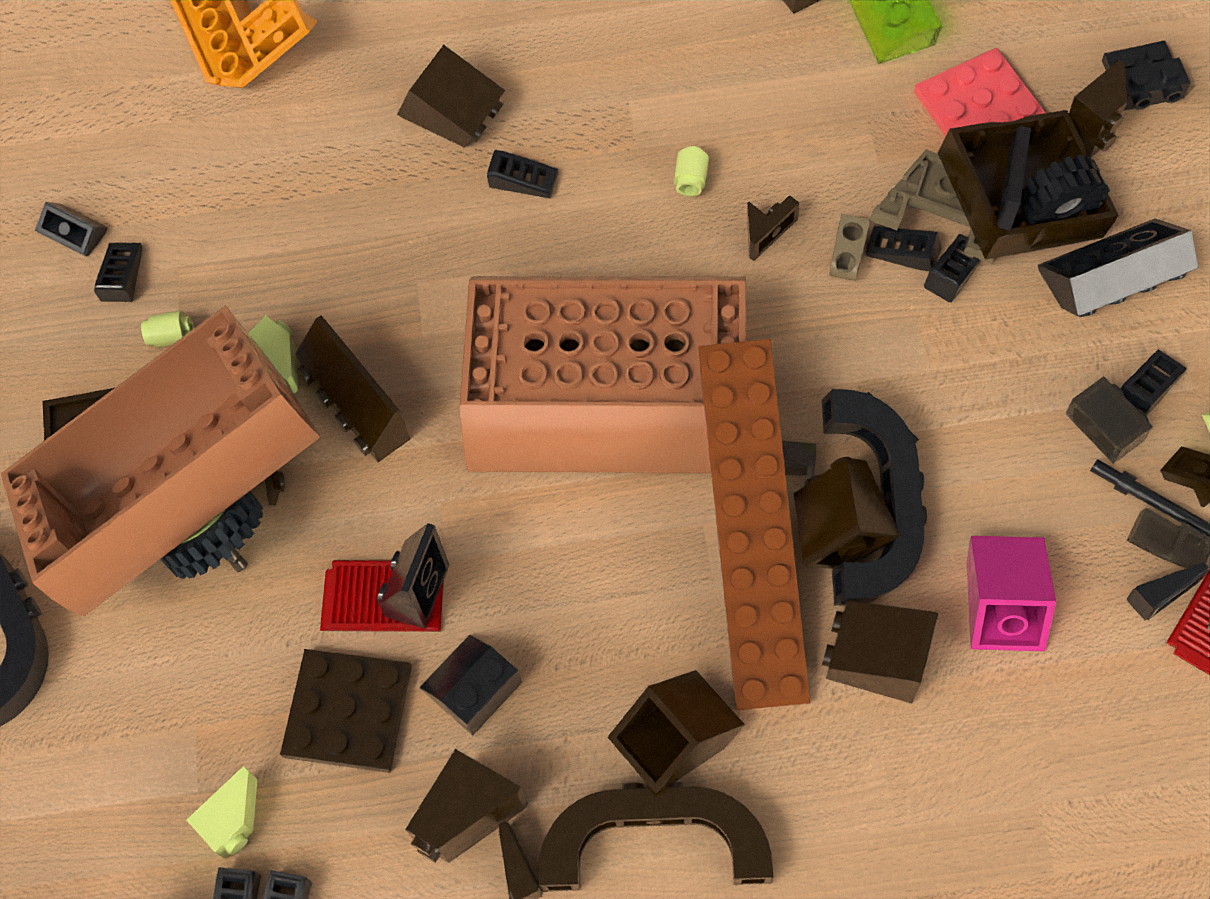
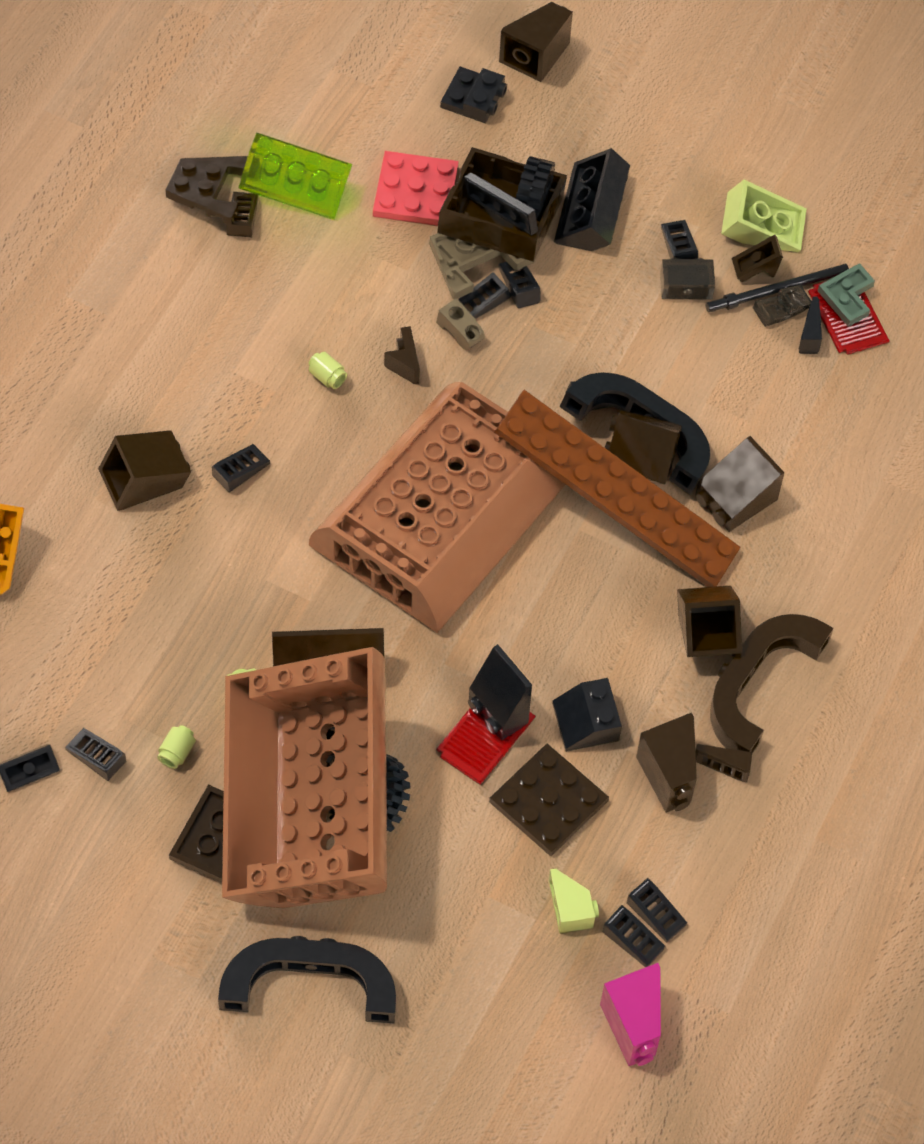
camera: 65 degrees left, 5 degrees down
(1009, 593) = (754, 401): dark pink slope -> none
(1100, 108) = (487, 127): dark brown slope -> none

